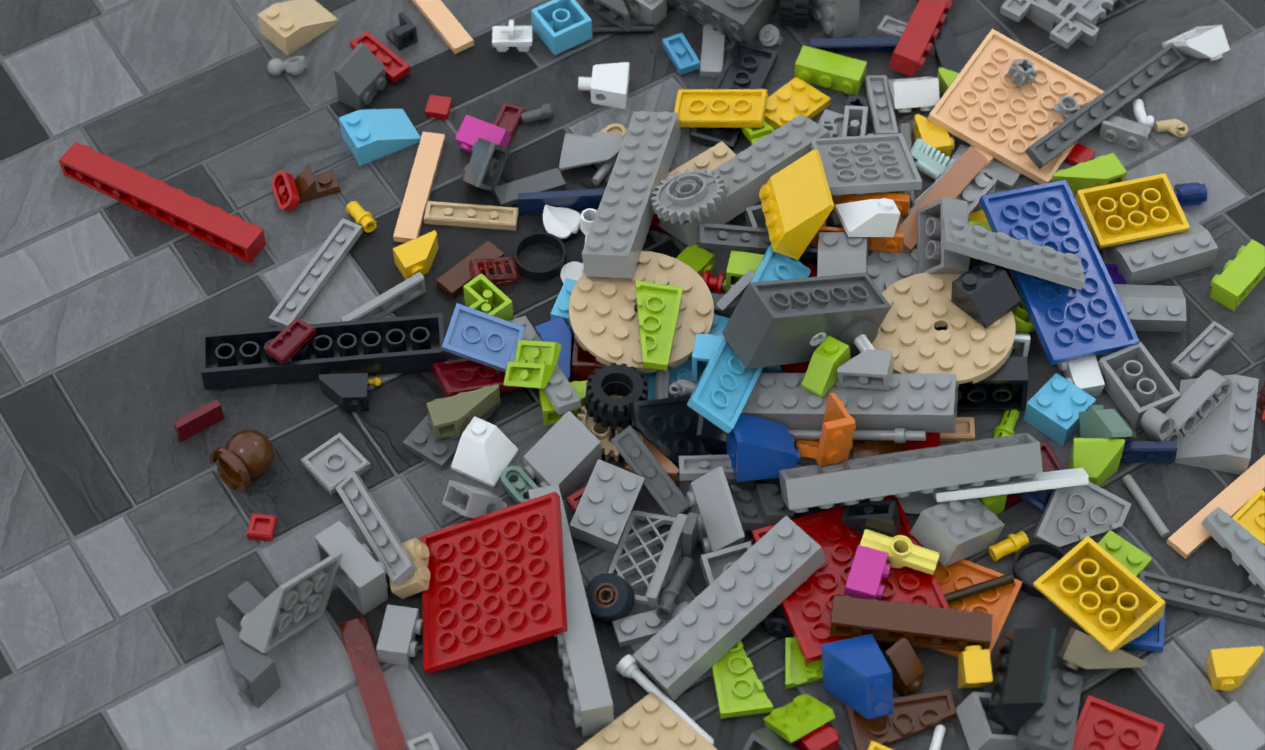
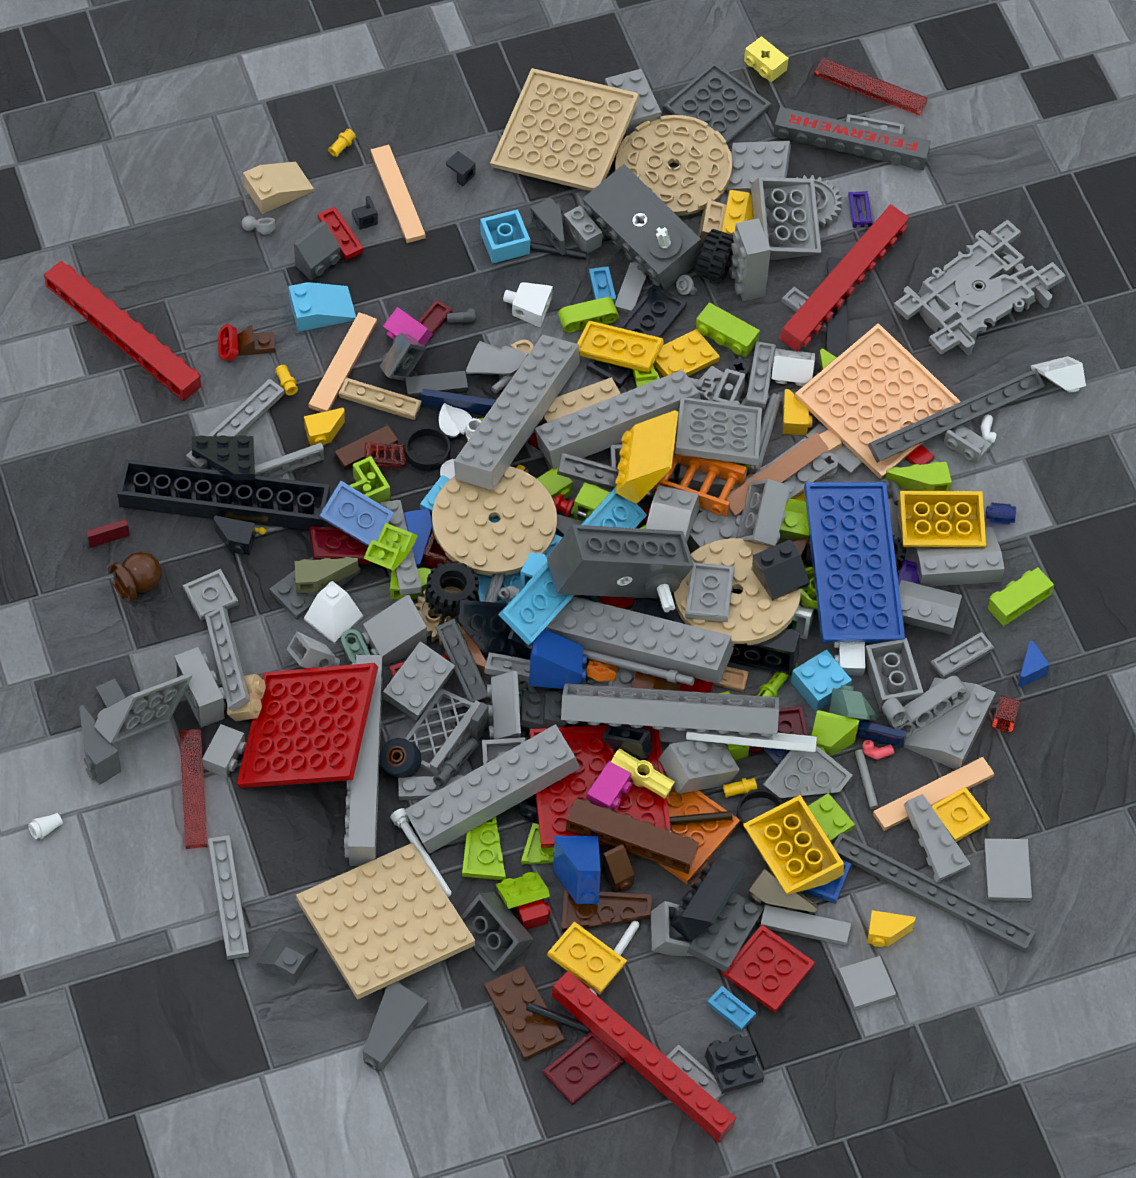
camera: 10 degrees right, 5 degrees up
(262, 527) = (137, 636): red tile -> none
(290, 340) = (196, 482): dark red plate -> none
(317, 303) = (228, 454): none -> black plate
(438, 107) = (378, 291): red tile -> none
(512, 36) = (459, 238): white hips -> none
(657, 318) = (503, 531): lime wing -> none
(664, 88) = (577, 316): none -> lime beam
(688, 196) = (560, 426): light grey gear -> none
(736, 290) = (577, 519): light grey tile -> none
(824, 364) = (626, 605): lime slope -> none
(836, 433) = (616, 665): orange bracket -> none
(855, 45) = (755, 310): dark blue tile -> none
(867, 370) = (658, 616): light grey slope -> none
(869, 217) = (701, 482): white slope -> none
(914, 334) = (709, 592): none -> light grey tile
(927, 164) = (782, 436): light aqua piece -> none
(974, 668) = (673, 881): yellow slope -> none
(1012, 253) = (812, 540): light grey plate -> none
(1022, 72) = (889, 371): light grey gear -> none
(1067, 106) = (923, 406): light grey plate -> none
(1137, 684) = (806, 925): none -> light grey tile
(1146, 474) = (875, 752): none -> coral arm
(1173, 126) = (1010, 446): tan arm -> none

